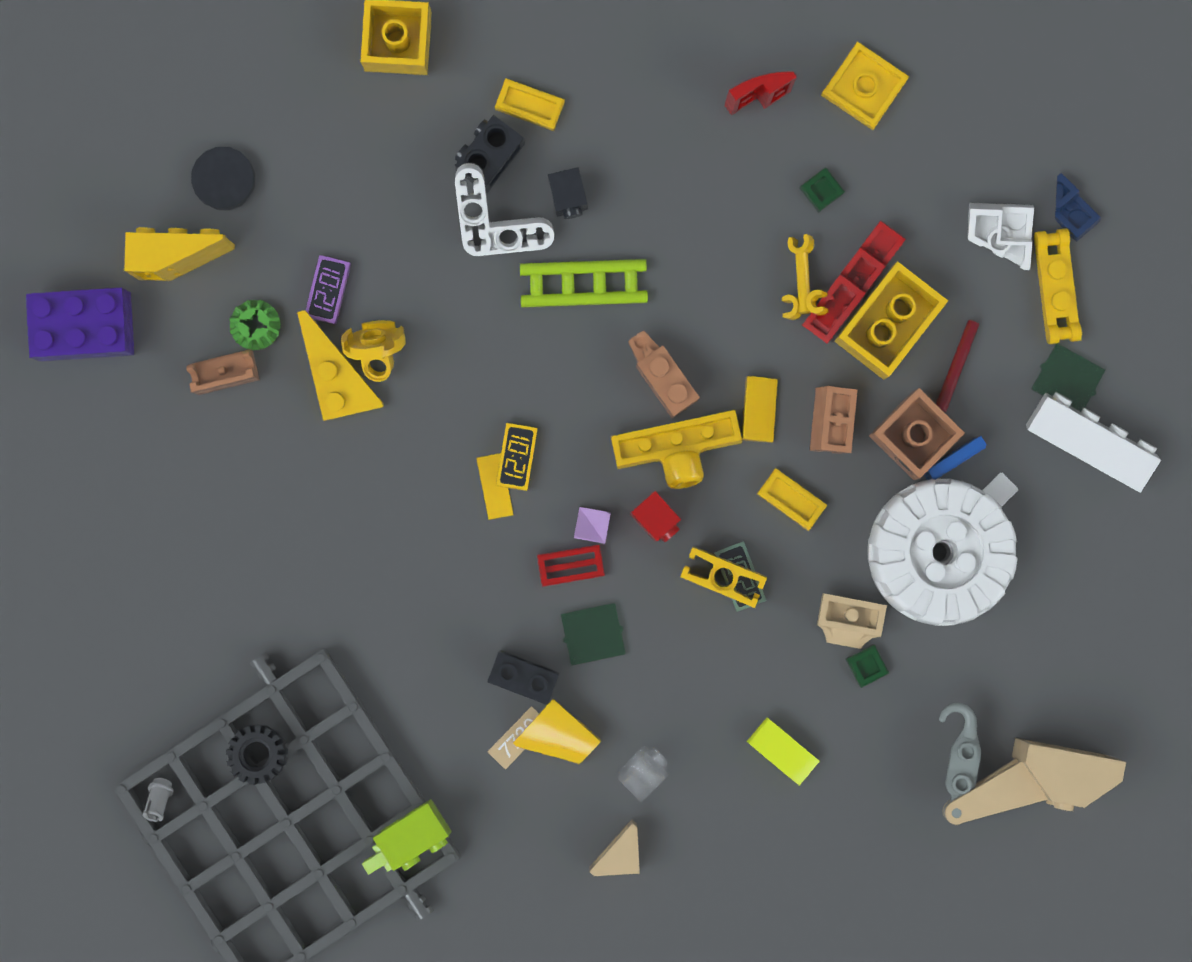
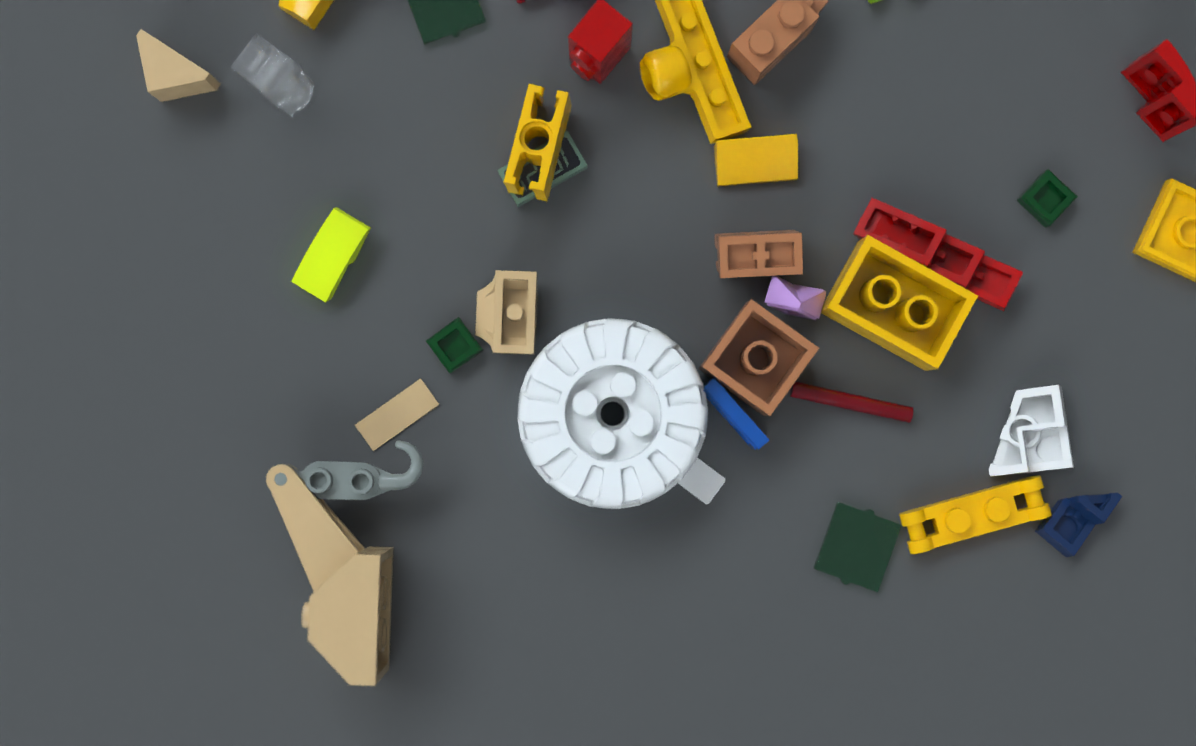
camera: 80 degrees right, 0 degrees up
(791, 499) = (649, 219): yellow tile -> none
(806, 300) = (909, 196): yellow bar -> none
(873, 397) = (795, 299): none -> lavender slope
(913, 719) = (396, 414): none -> tan sticker
(1093, 442) = (783, 588): white brick -> none

